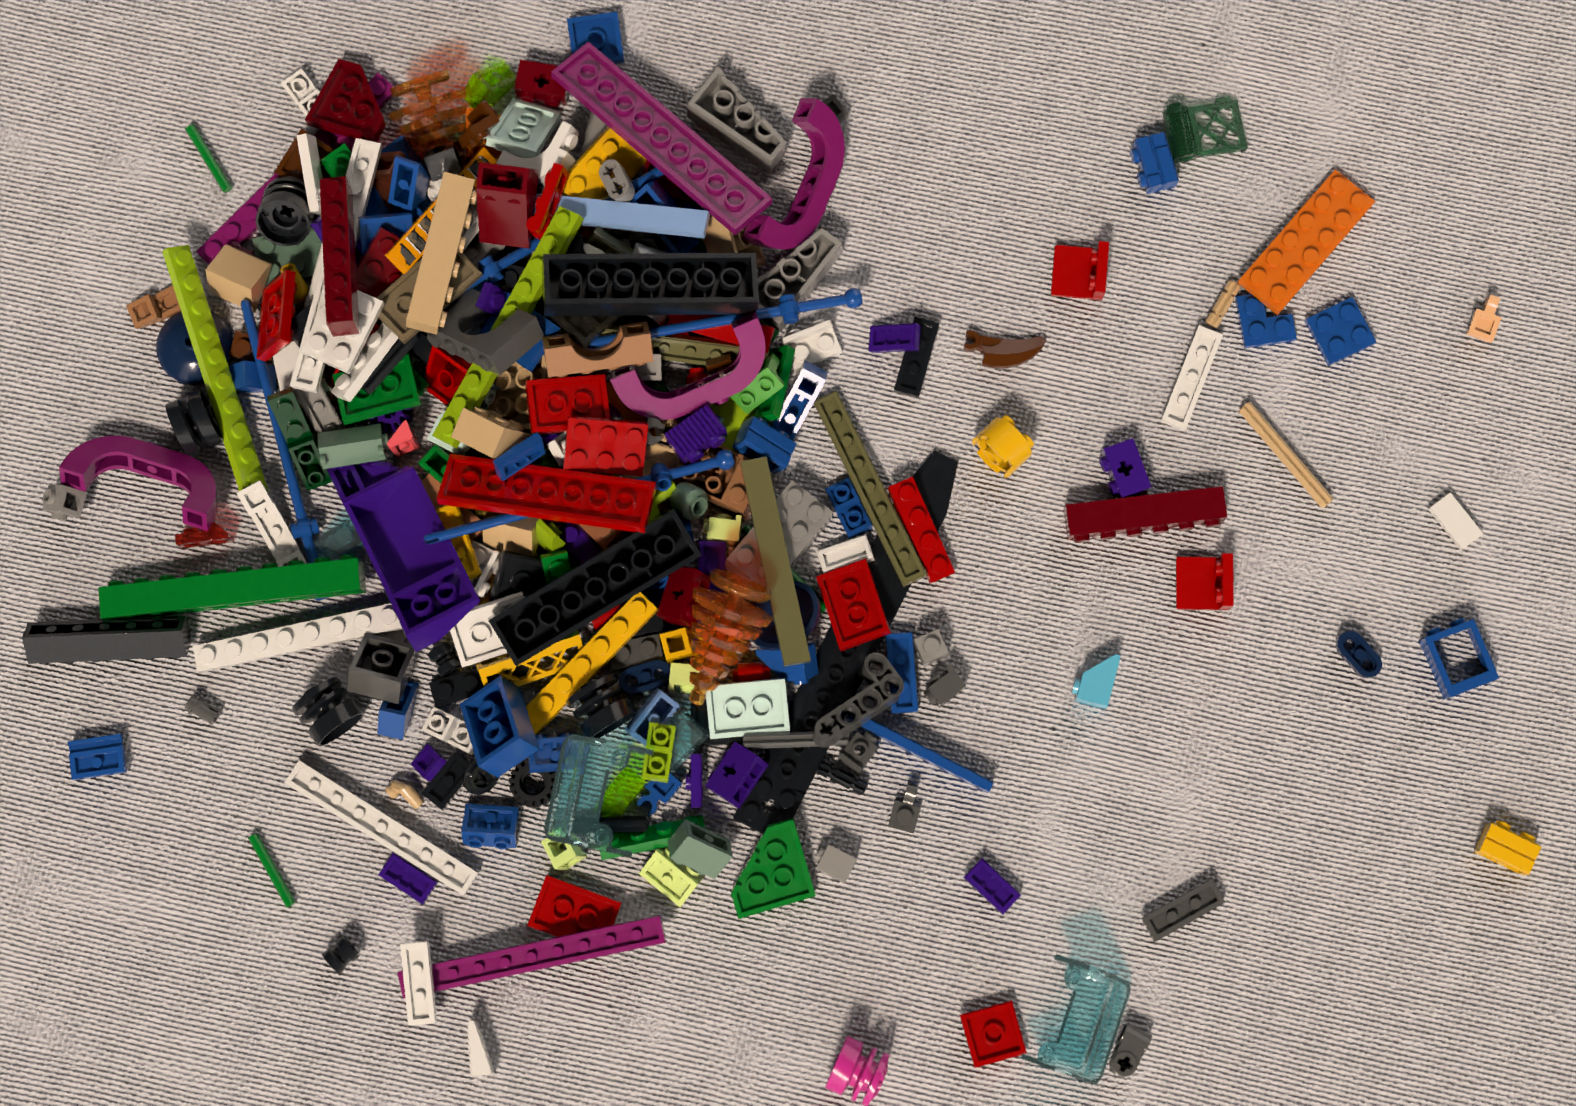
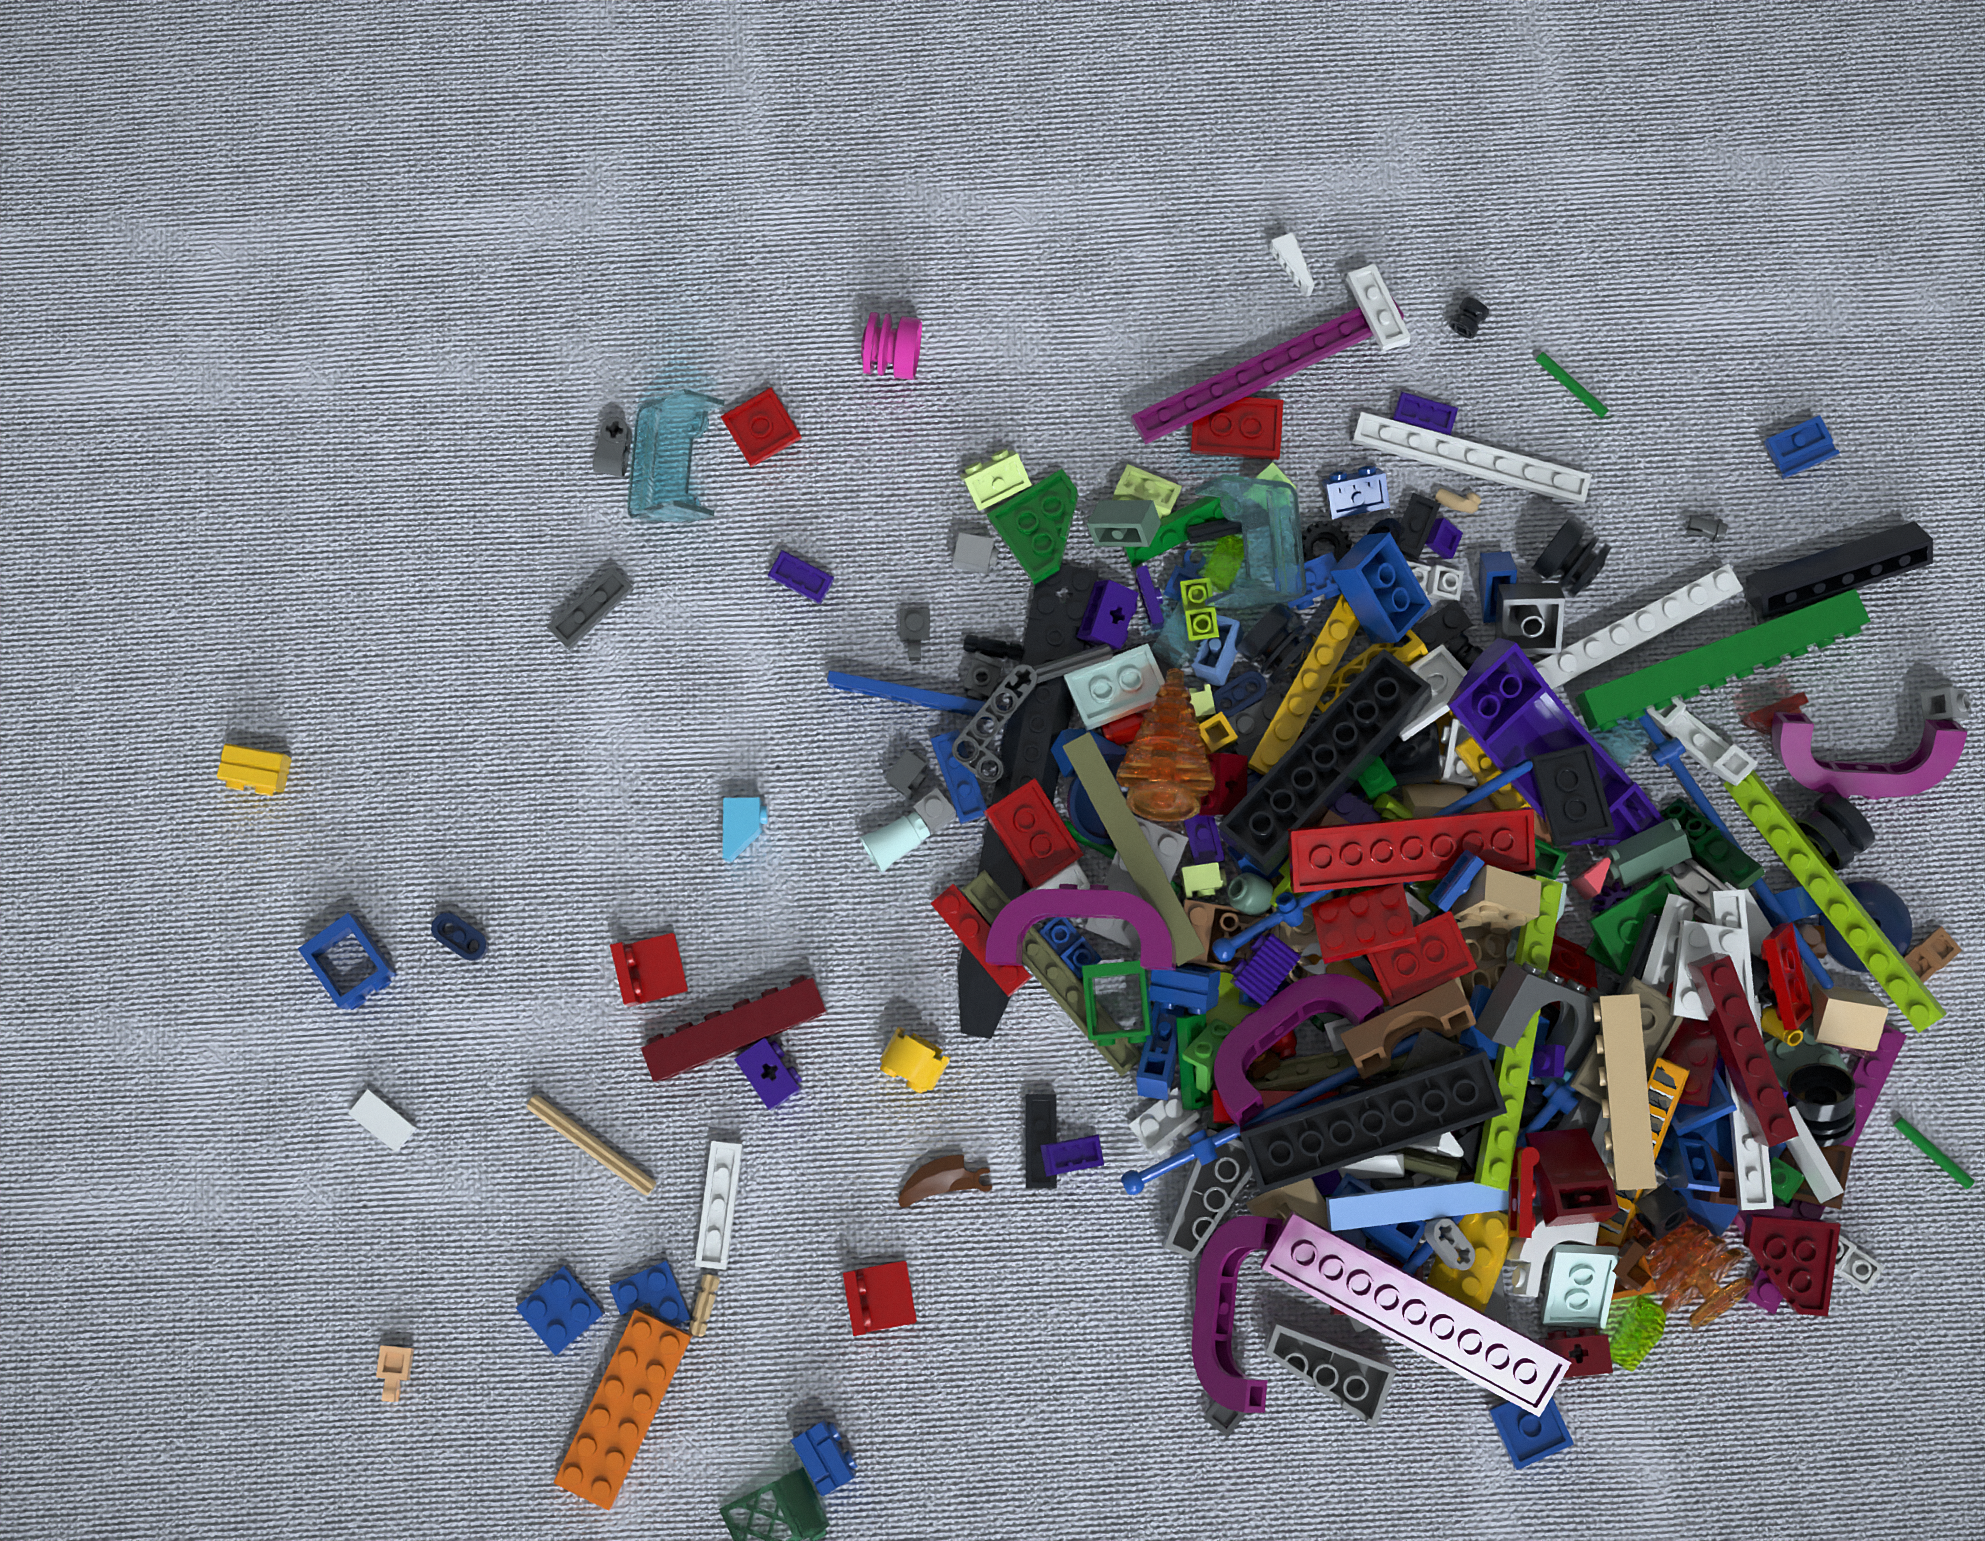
camera: 165 degrees right, 0 degrees up
(399, 506) = (1571, 795): none -> black tile
(799, 927) = (995, 478): none -> yellowish green bracket
(818, 470) = (1107, 1038): none -> green window
(820, 523) = (1017, 917): none -> magenta arch
(971, 633) = (894, 840): none -> light aqua plant

